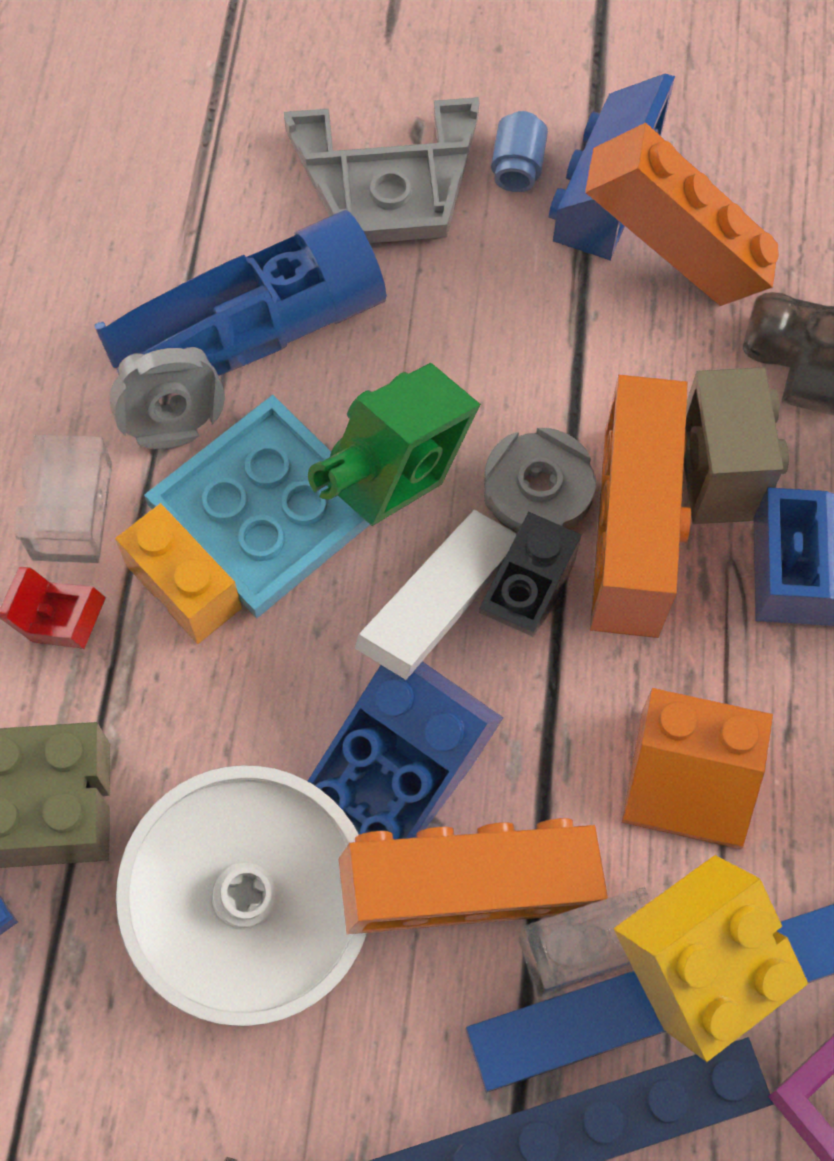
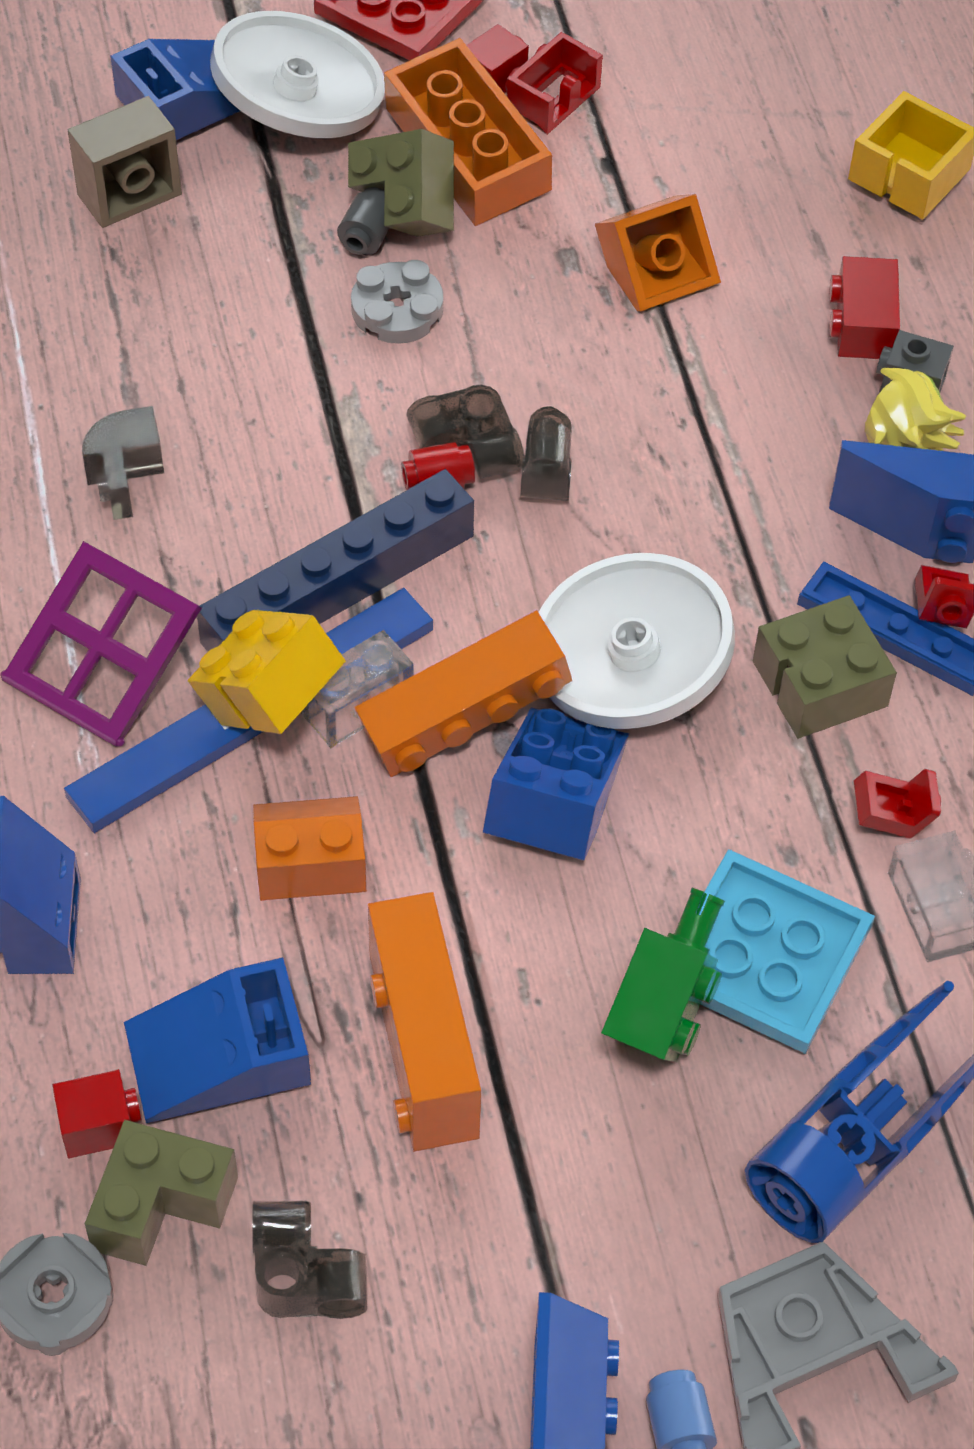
camera: 160 degrees right, 10 degrees down
(157, 374) = (915, 981): light grey plate -> none
(179, 573) = (810, 851): light orange brick -> none
(436, 595) = (572, 893): white tile -> none
(530, 454) = (538, 1075): light grey plate -> none
(532, 574) = (499, 940): black slope -> none
(682, 215) = (469, 1297): orange brick -> none
(731, 444) = (352, 1104): dark tan brick -> none

